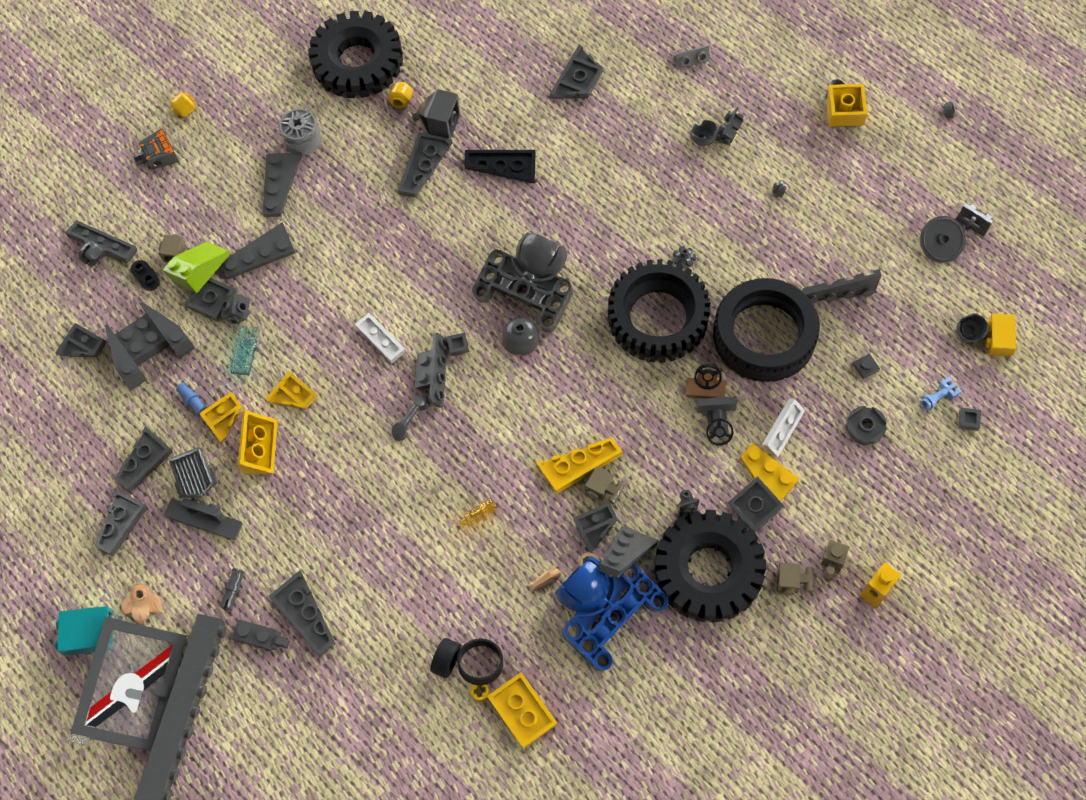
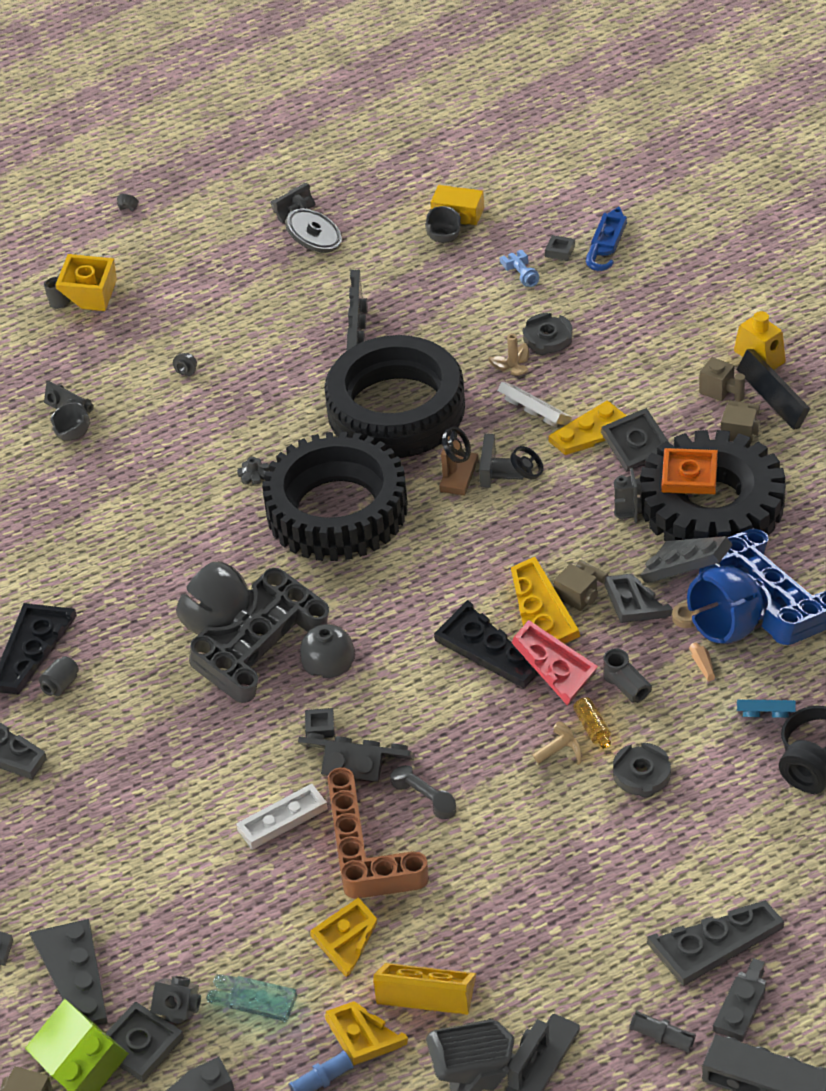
camera: 80 degrees left, 20 degrees down
(361, 385) = (362, 875): none -> nougat beam
(439, 539) = (641, 783): none -> dark grey plate
(458, 494) = (565, 739): none -> tan plant
(478, 185) = (58, 676): none -> dark grey brick
(504, 626) = (779, 708): none -> dark azure plate
(518, 529) = (620, 672): none -> dark grey piece
(523, 481) = (555, 661): none -> coral wing
(541, 431) = (482, 643): none -> black wing
(713, 543) = (689, 471): none -> orange tile
(831, 399) = (516, 356): none -> tan plant
(834, 600) = (773, 389): none -> black tile
(866, 366) = (465, 324): dark grey plate -> none
(991, 452) = (606, 238): none -> blue plate

